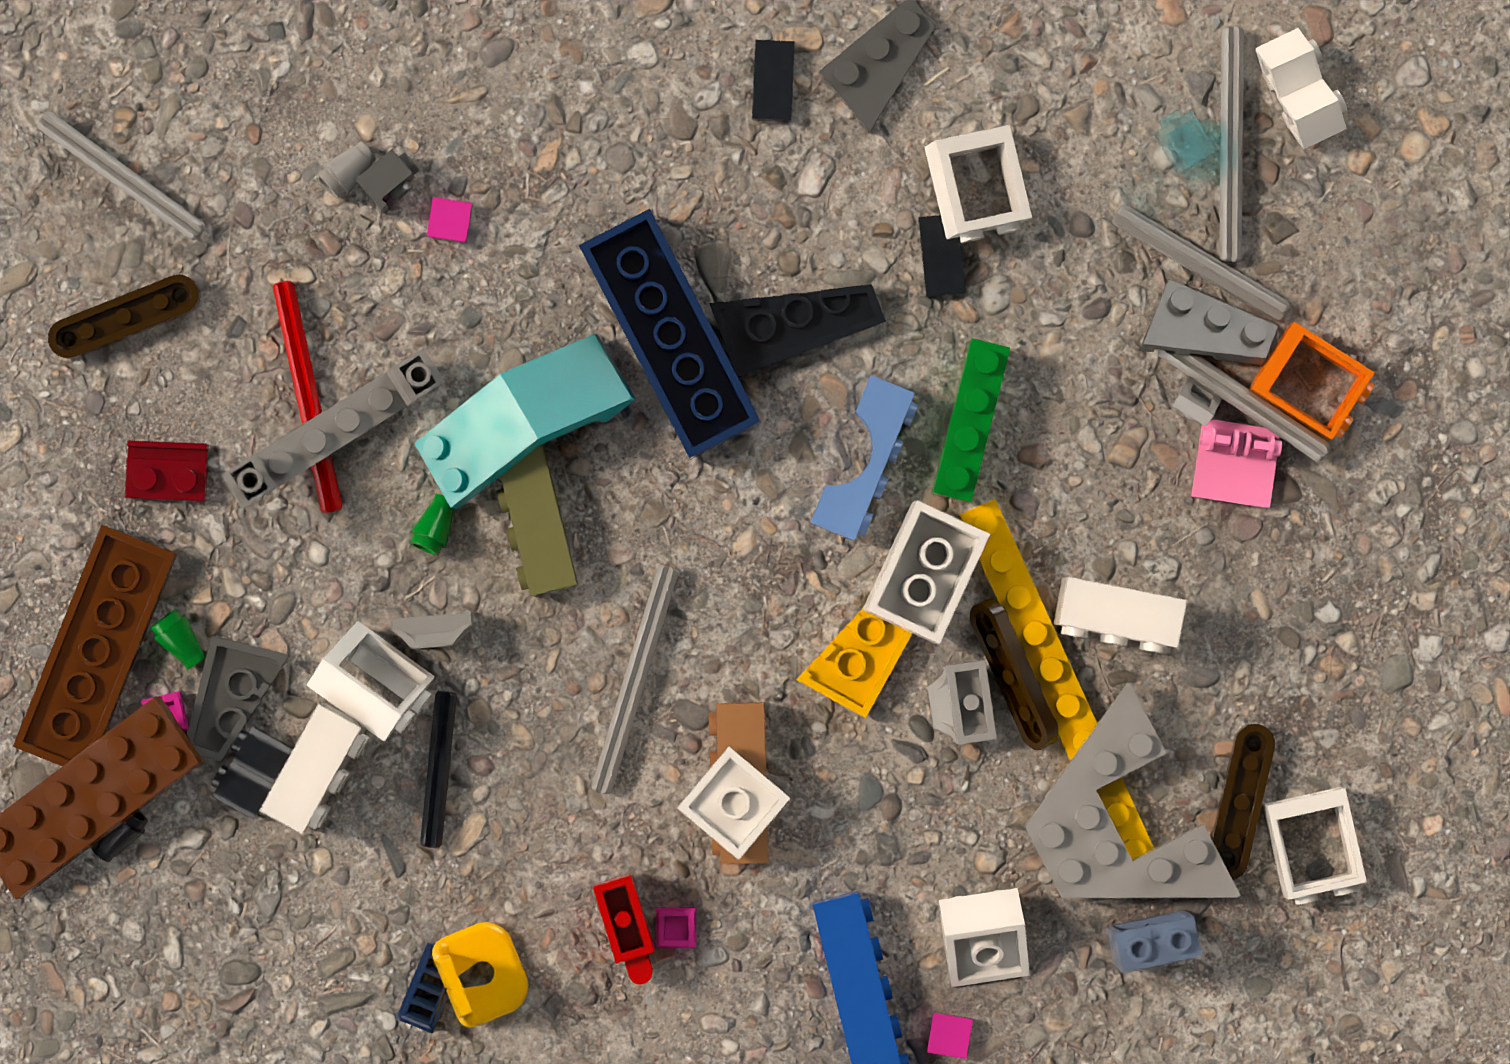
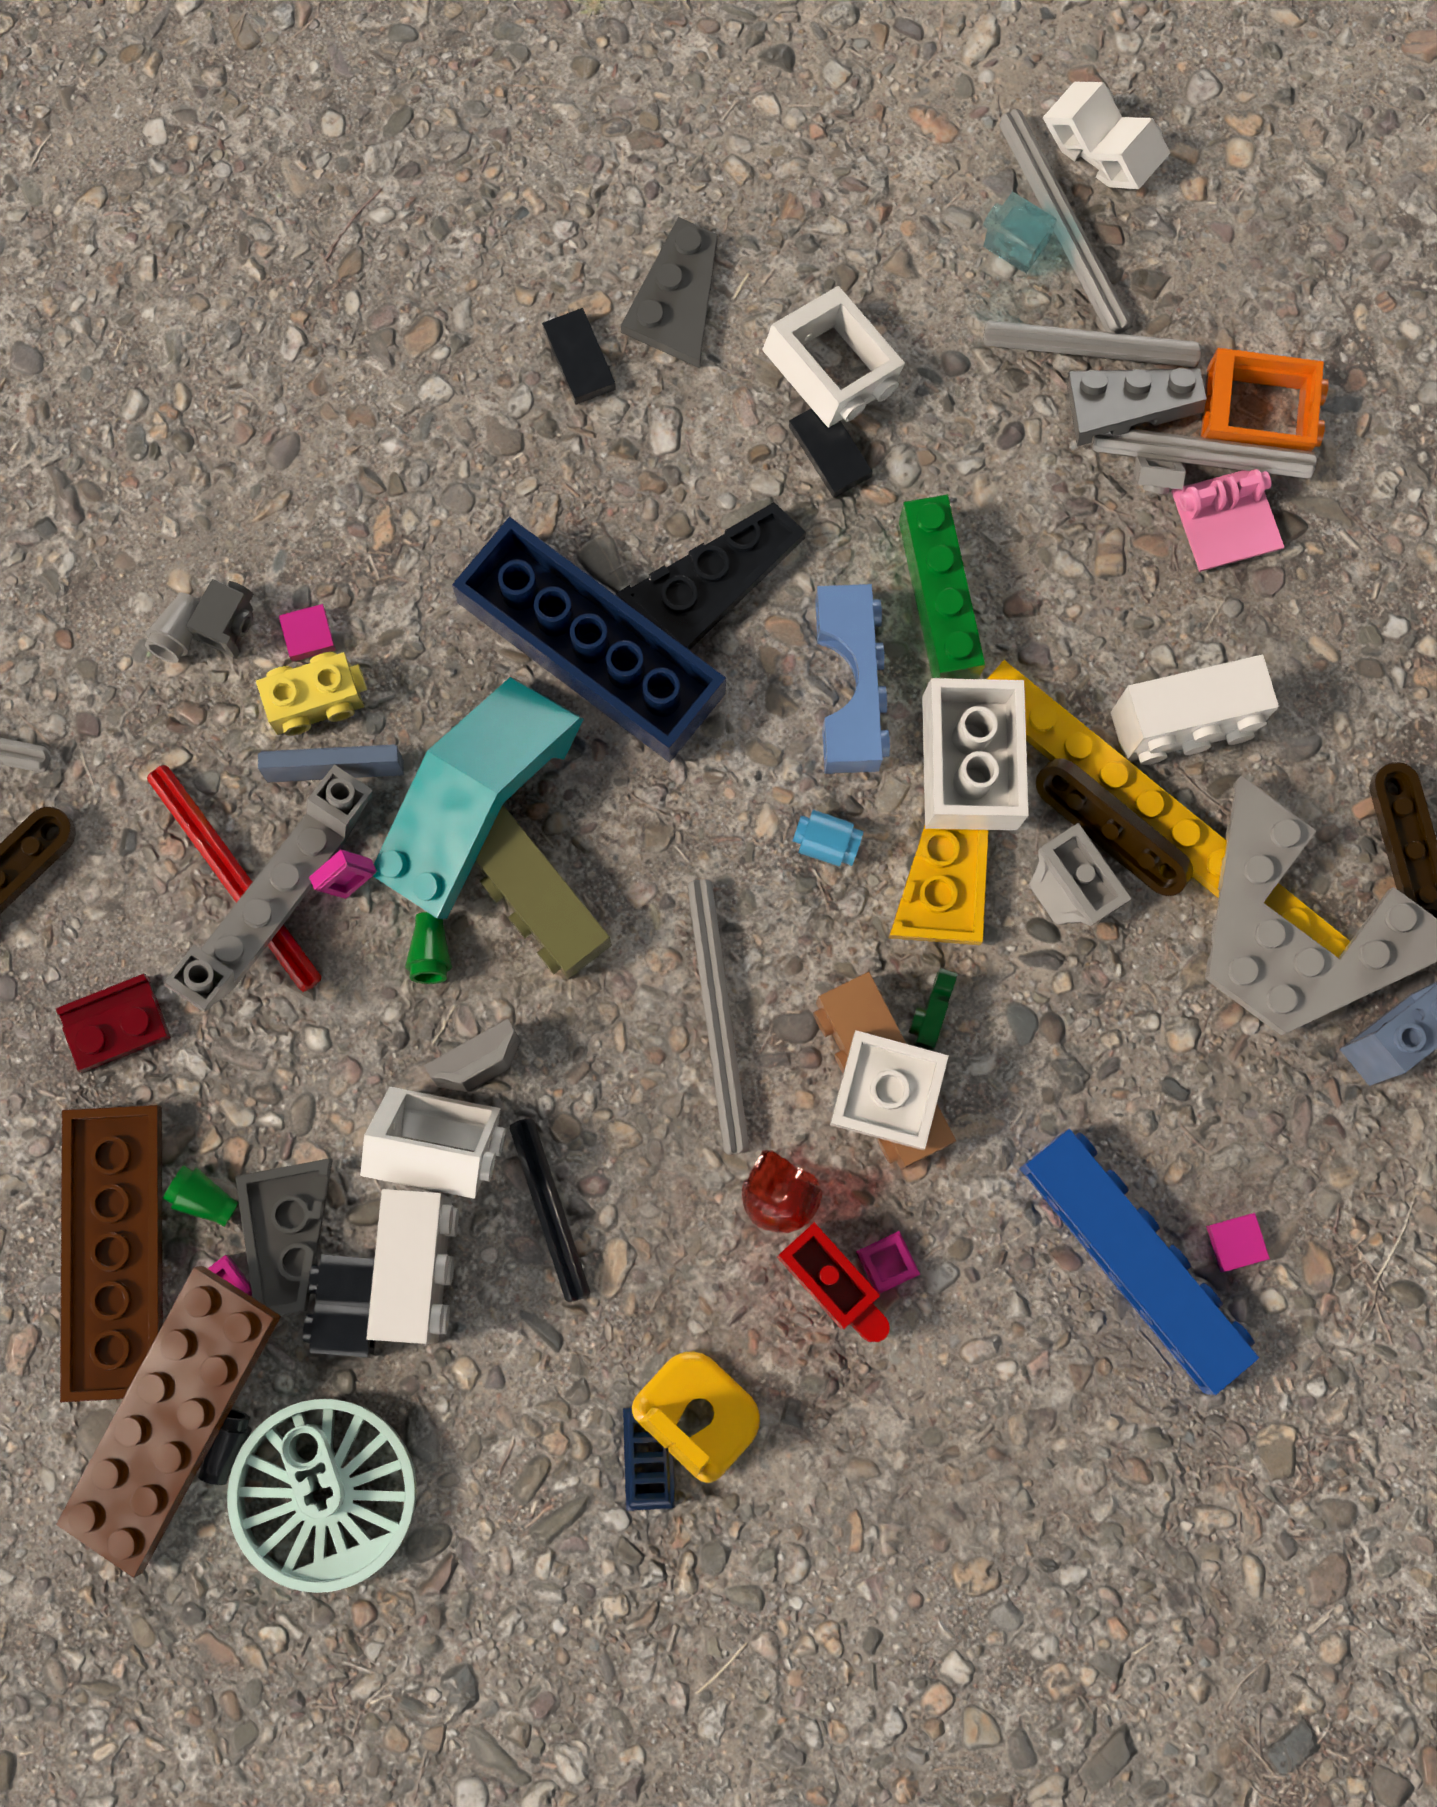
camera: 25 degrees left, 10 degrees down
(175, 962) = (348, 1564): none -> light aqua piece
(393, 437) = (343, 874): none -> dark pink tile
(420, 339) = (317, 762): none -> sand blue tile
(442, 276) = (311, 693): none -> light yellow brick
(617, 840) = (780, 1194): none -> clear red hair
(784, 580) = (828, 838): none -> dark azure brick
(793, 759) = (928, 1021): none -> dark green plate
(984, 937) = (1223, 1116): white slope -> none

